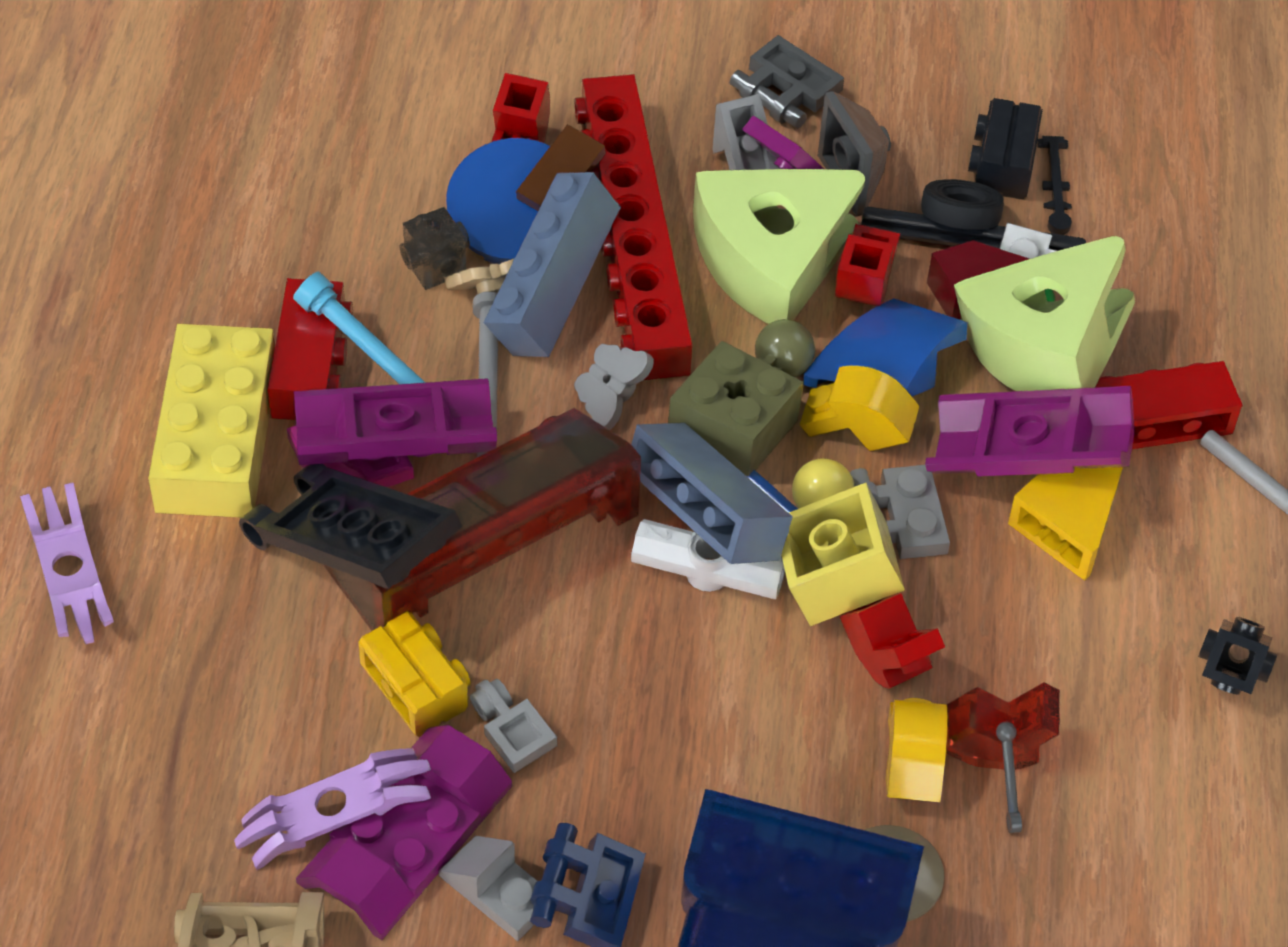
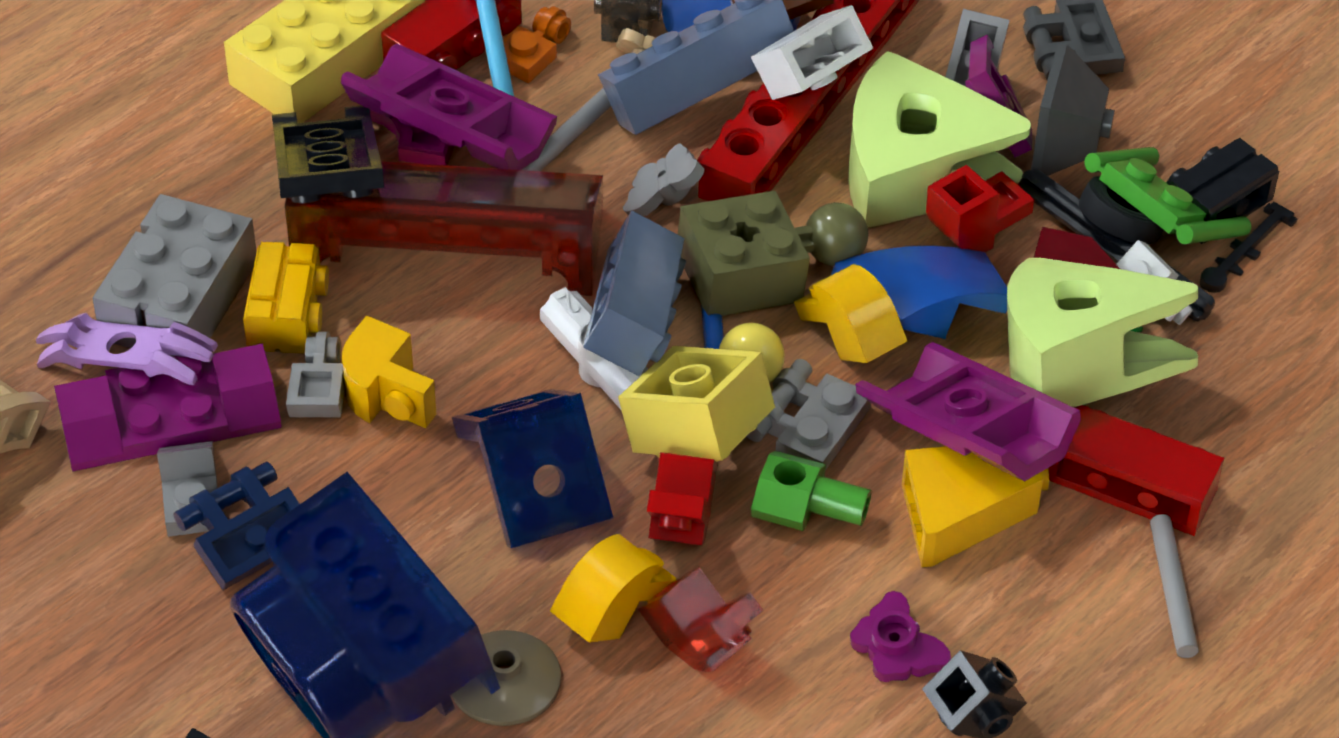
camera: 40 degrees right, 5 degrees down
(62, 541) = (127, 58): lavender piece -> none
(308, 705) = (178, 268): none -> light grey piece
(387, 328) = (533, 51): none -> orange plate
(560, 696) = (381, 377): none -> yellow brick
(650, 206) = (812, 53): none -> white brick
(746, 660) = (519, 440): none -> clear blue bracket
(969, 576) = (796, 487): none -> bright green piece
(994, 183) = (1170, 207): none -> bright green plate
(1006, 733) = (690, 620): dark grey hinge -> none
(1112, 640) = (912, 650): none -> magenta animal

